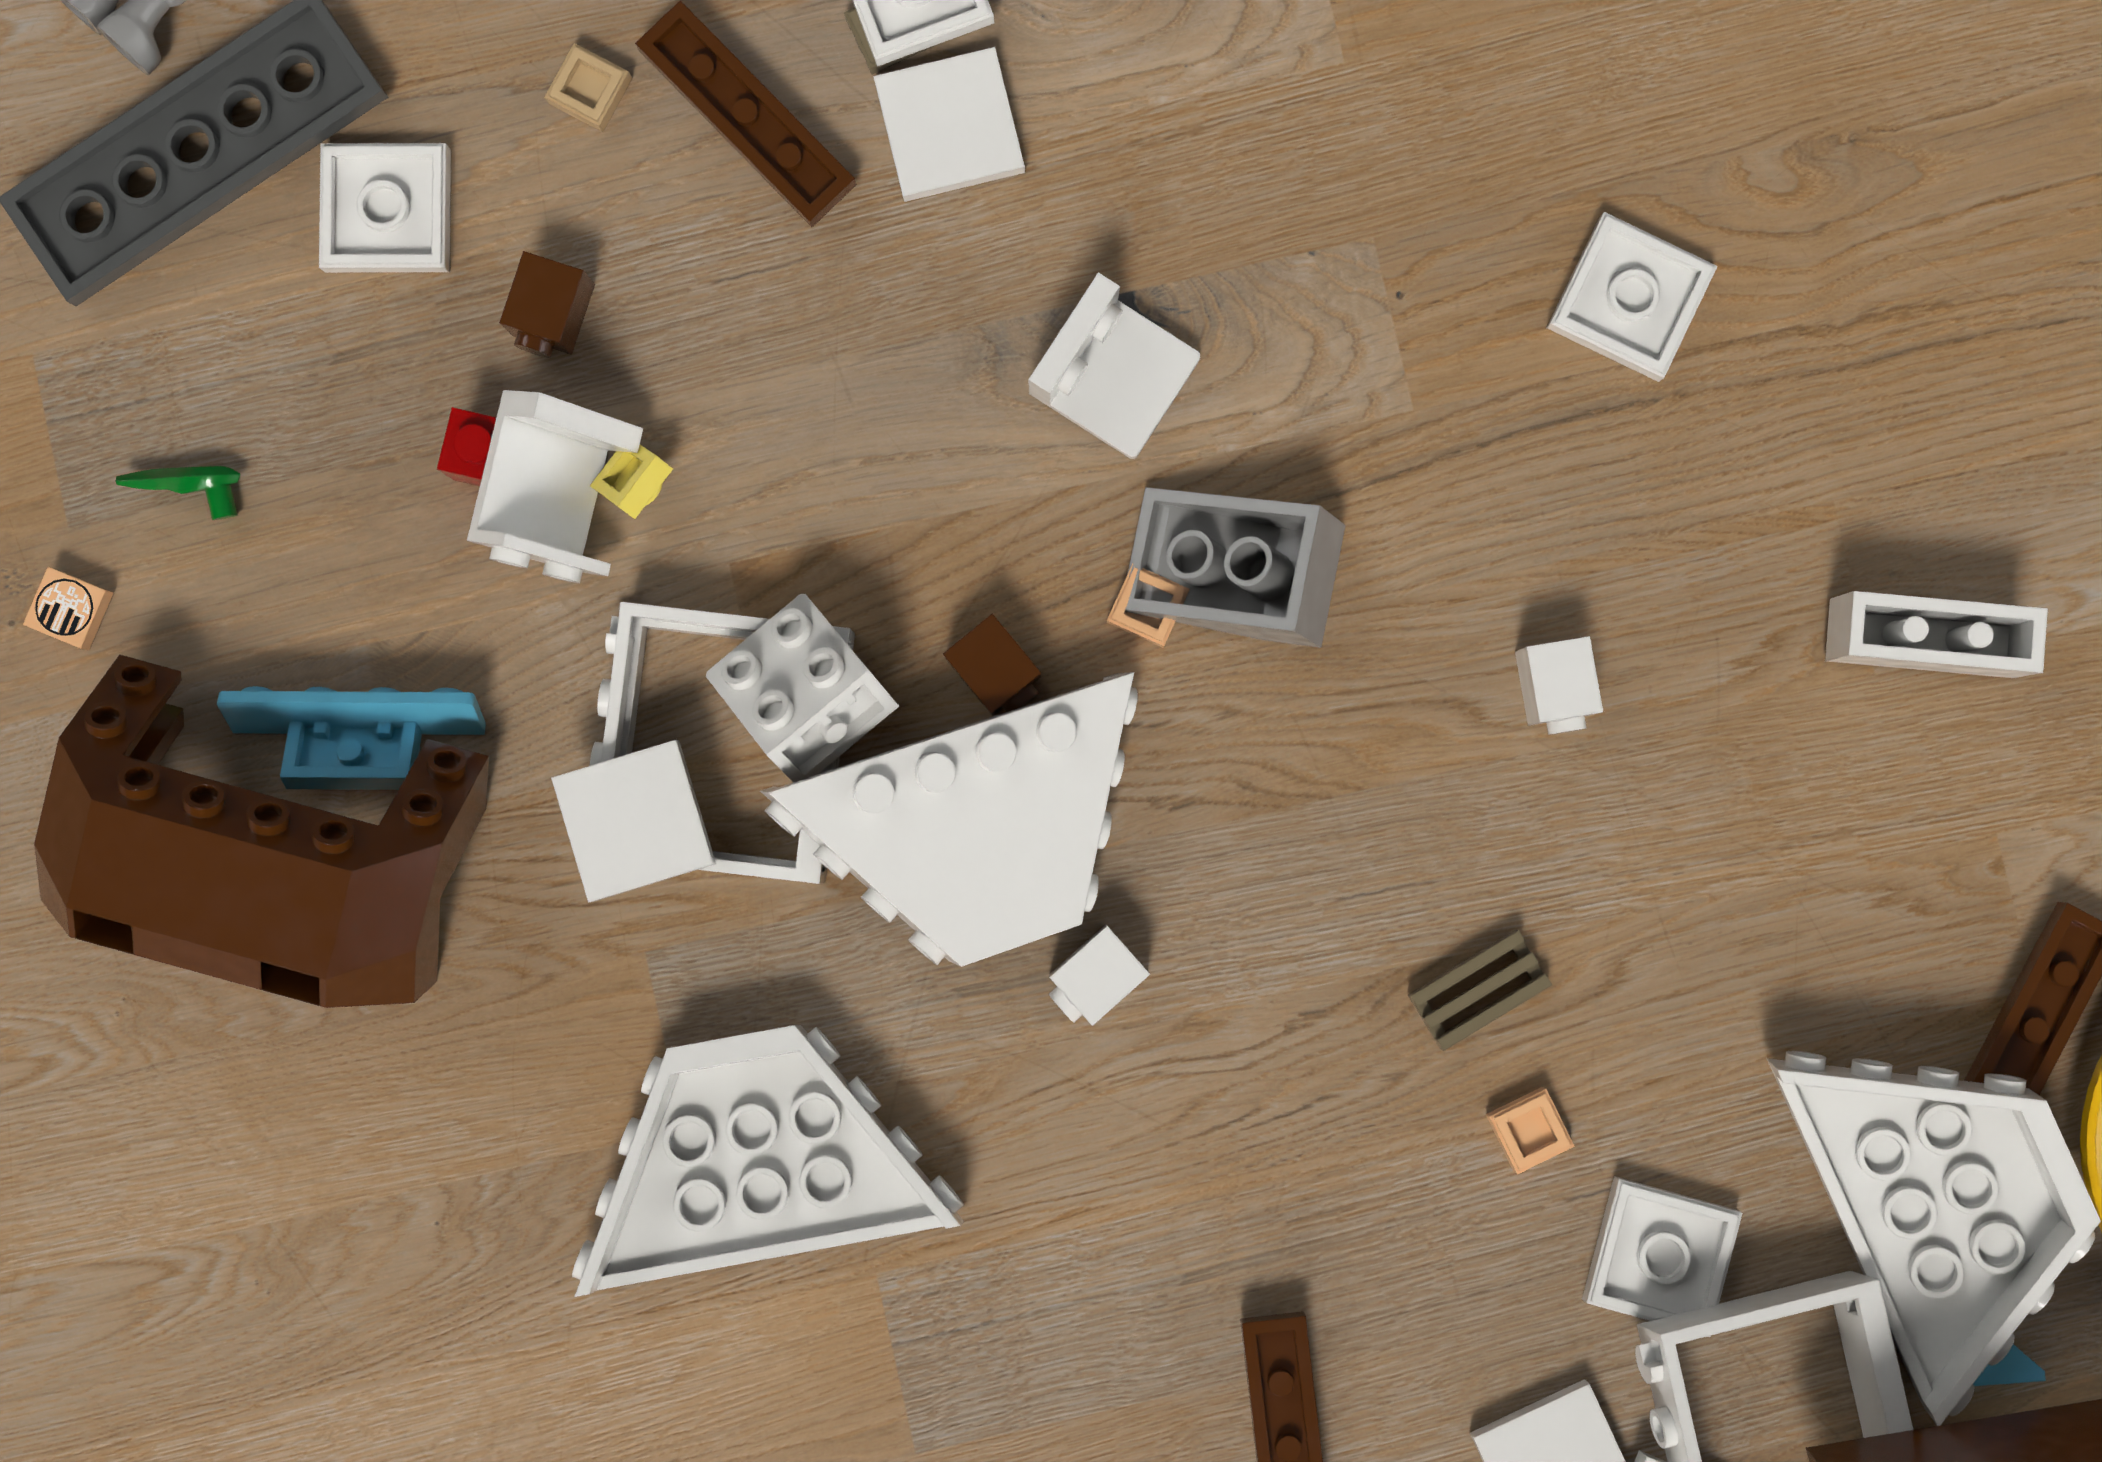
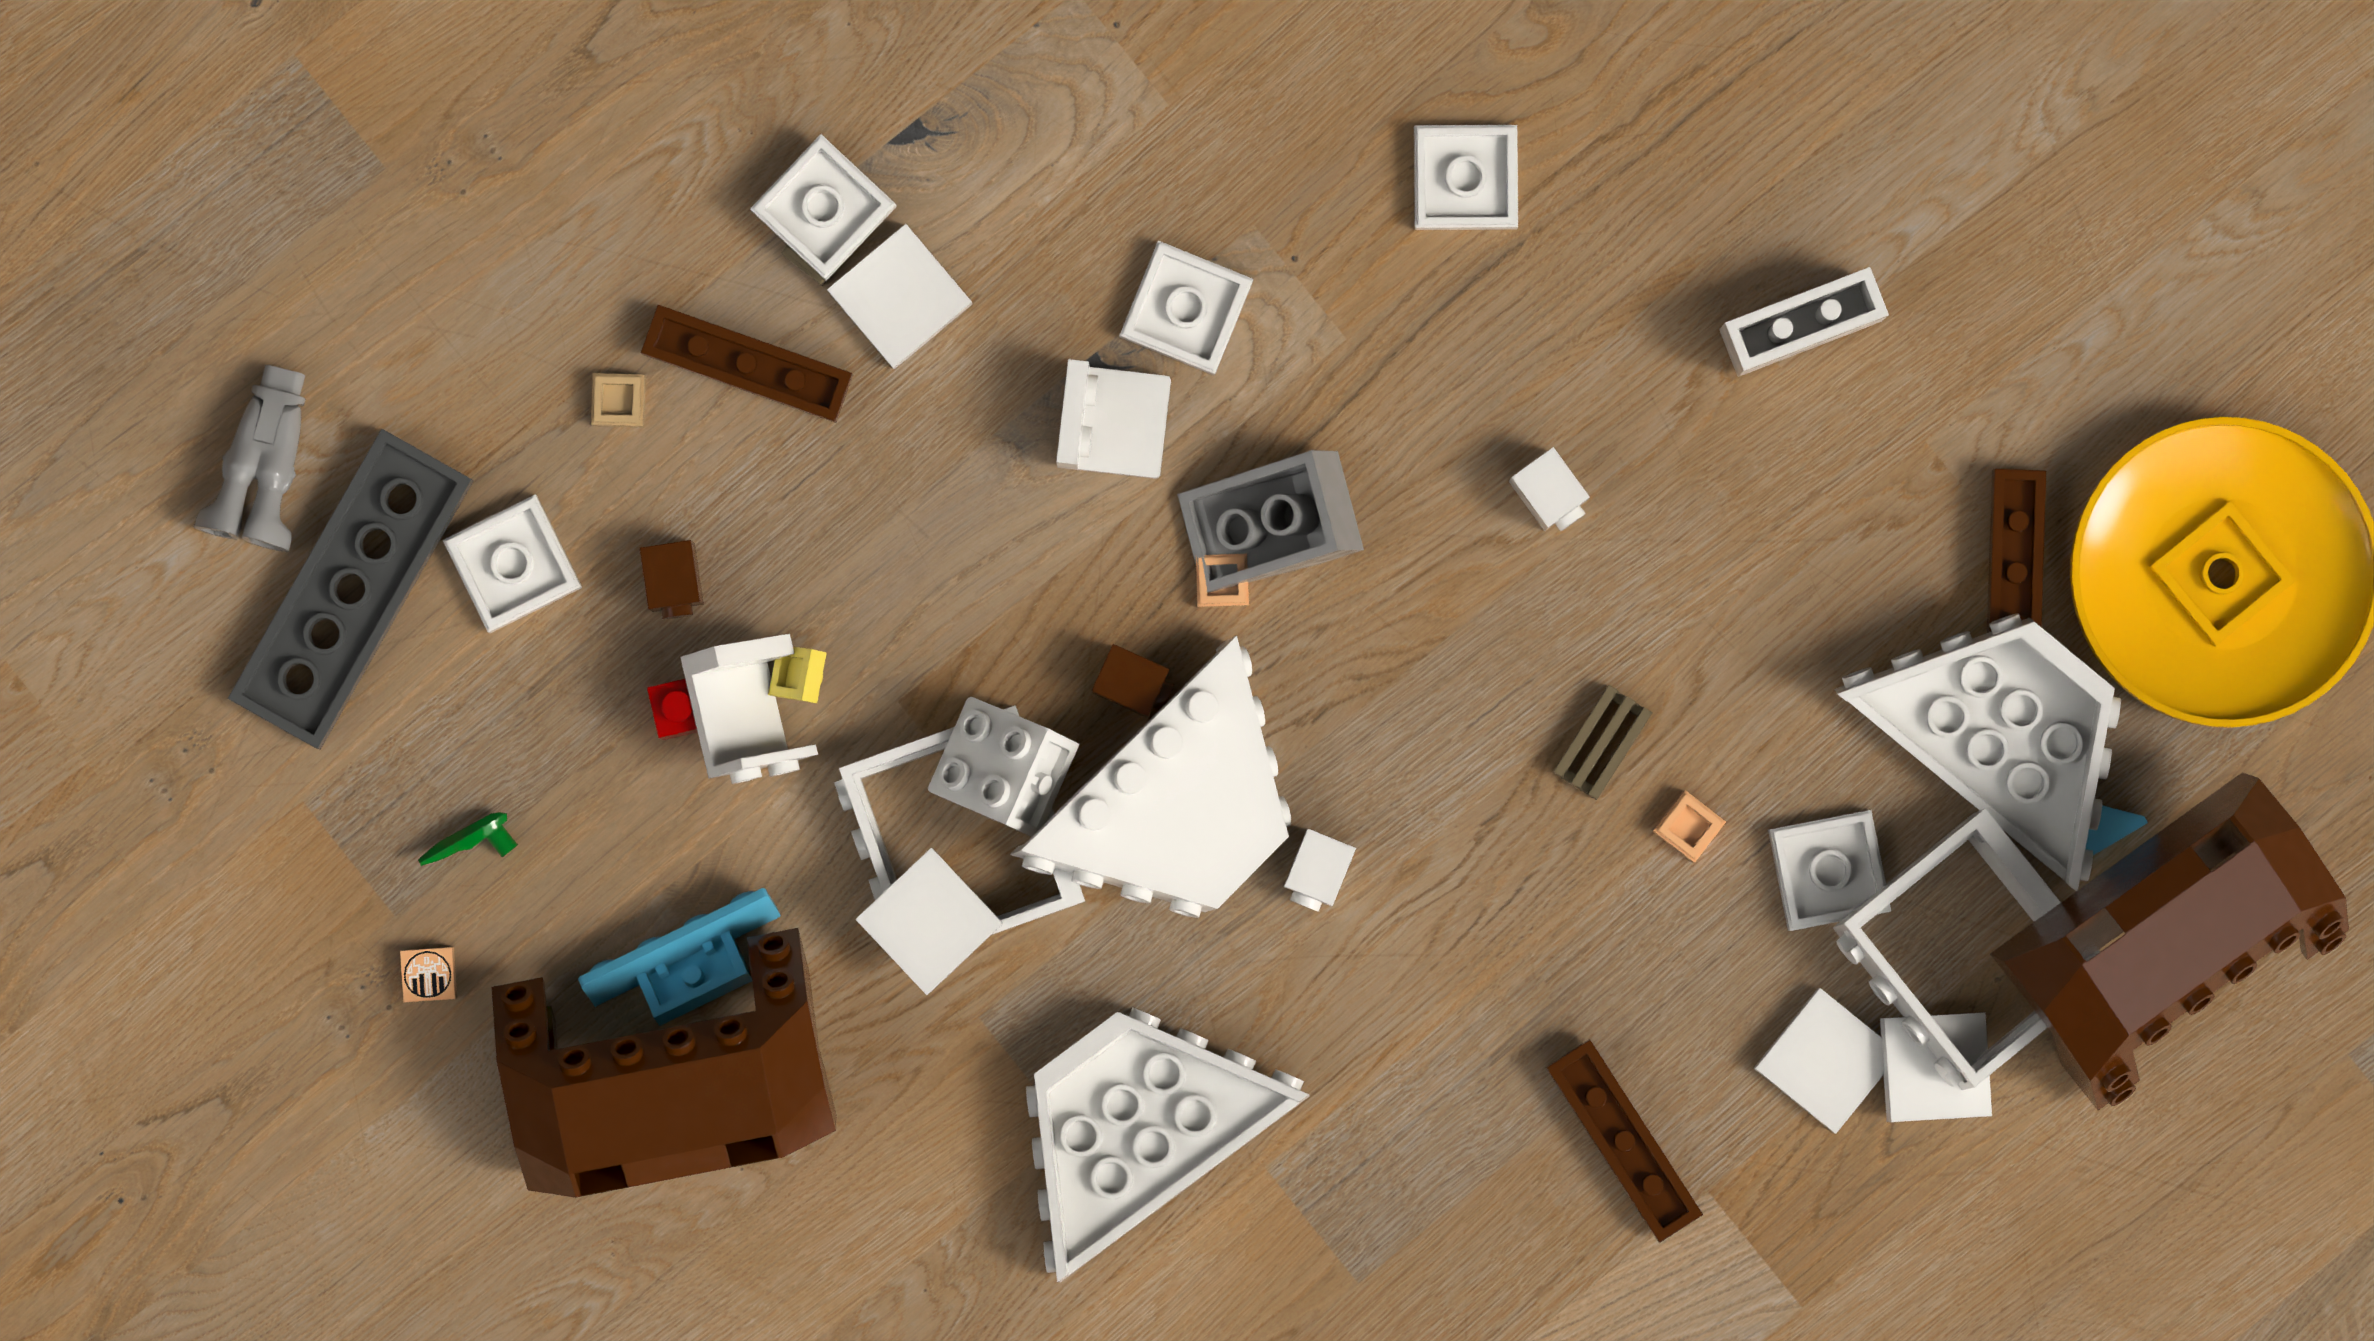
camera: 30 degrees left, 0 degrees up
(1255, 289) = (1186, 308): none -> white tile

